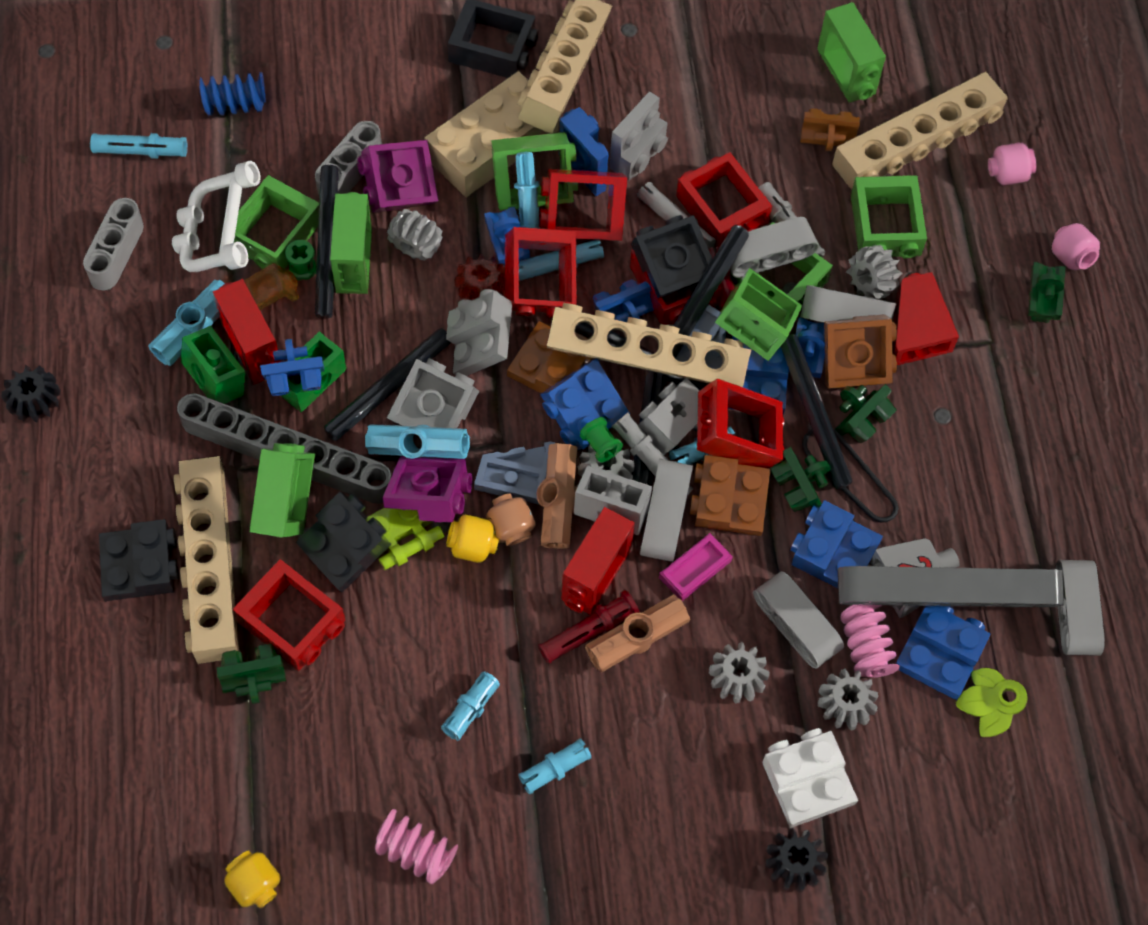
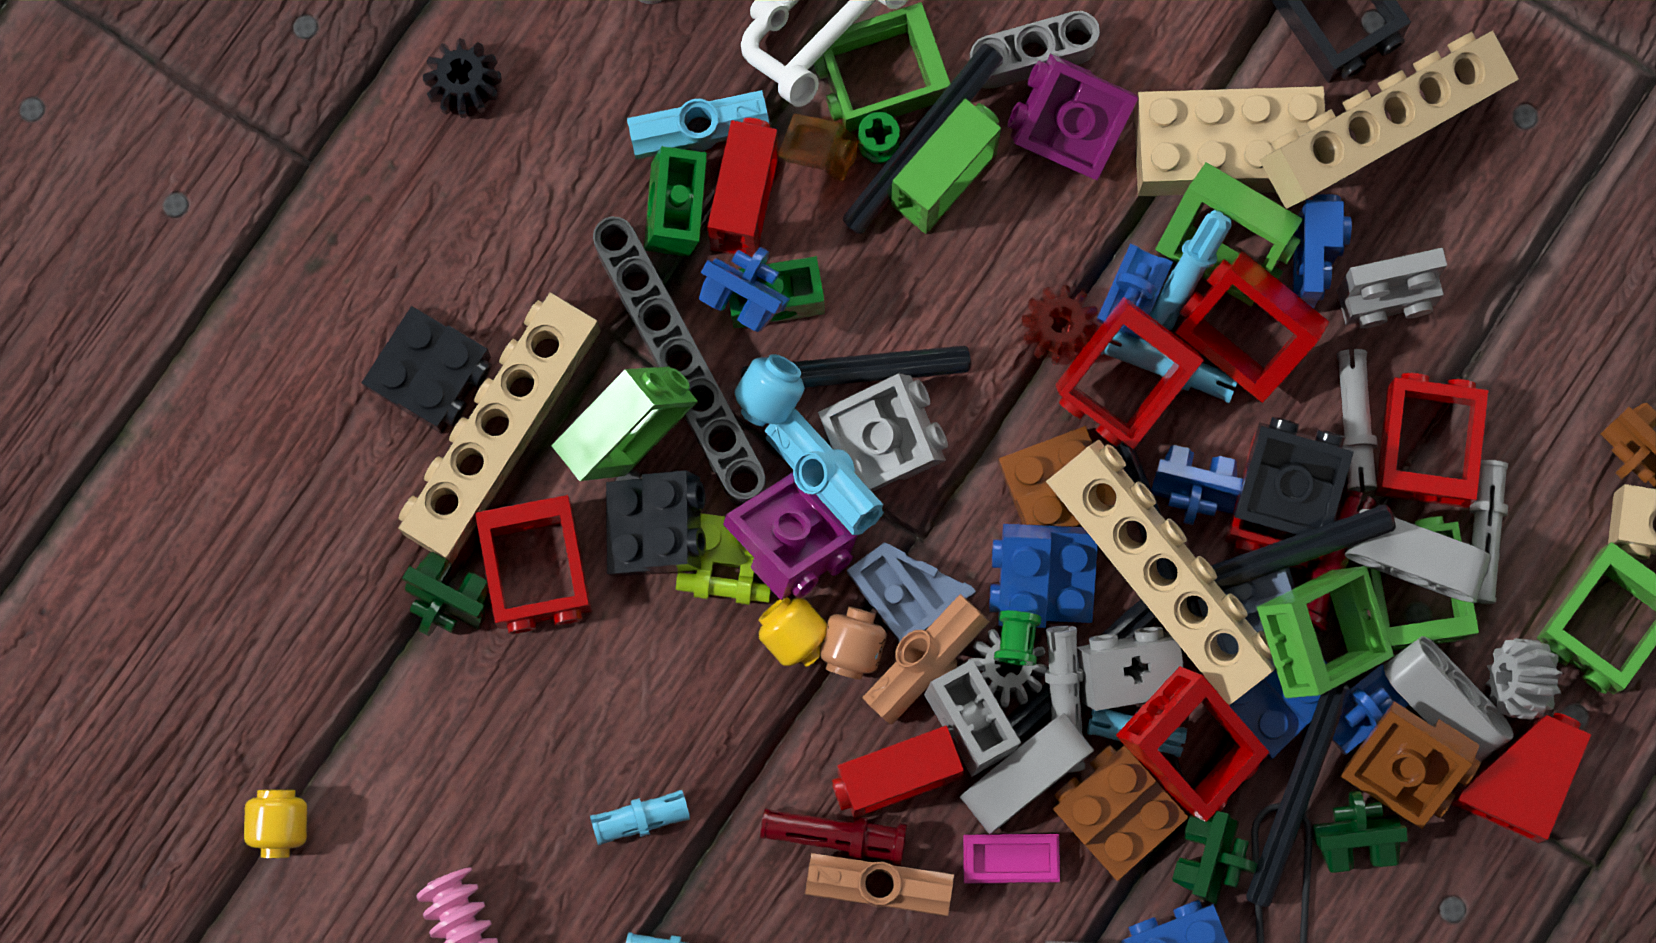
camera: 45 degrees right, 15 degrees up
(351, 420) = (769, 390): none -> medium azure head
(414, 234) = (1028, 208): light grey gear -> none
(479, 332) = (1001, 393): light grey plate -> none

